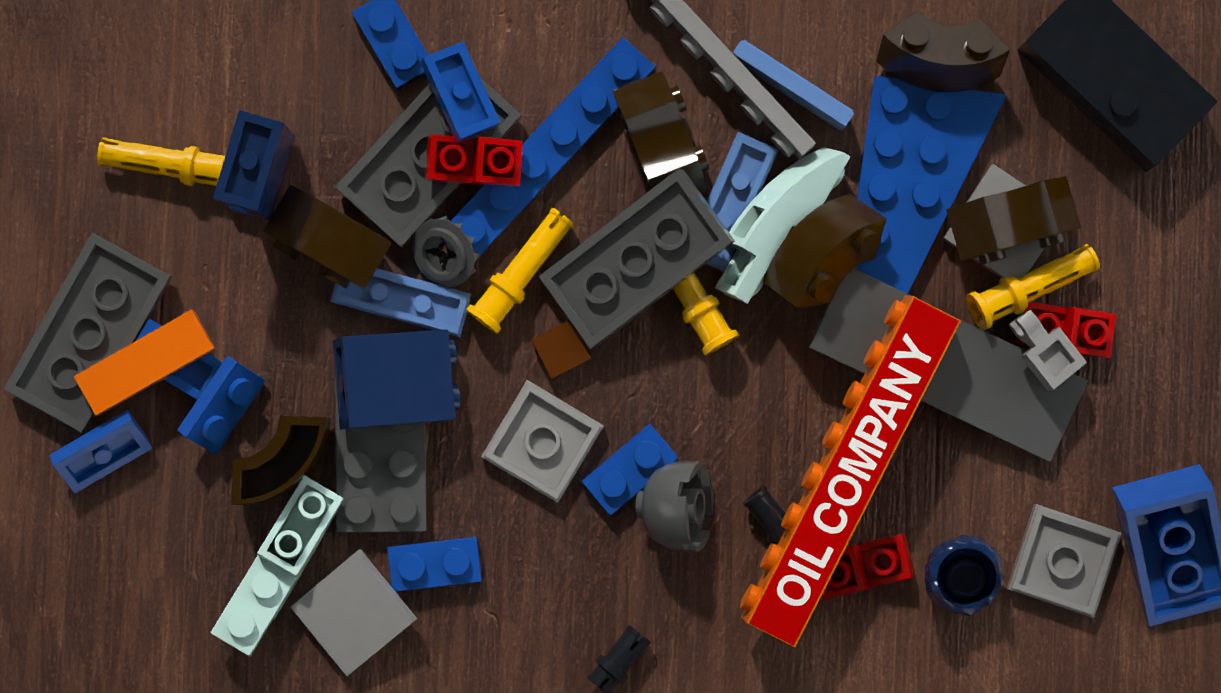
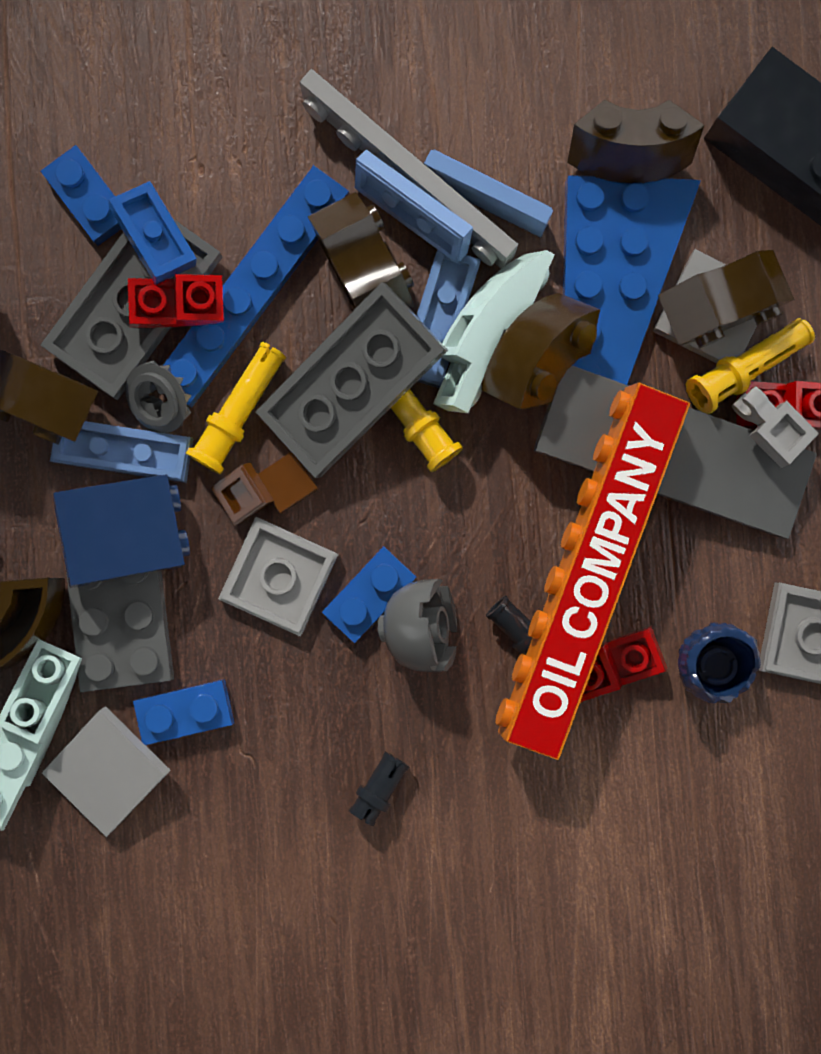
camera: 10 degrees left, 0 degrees up
(516, 356) = (242, 494): none -> reddish brown tile
(716, 92) = (412, 206): none -> medium blue tile

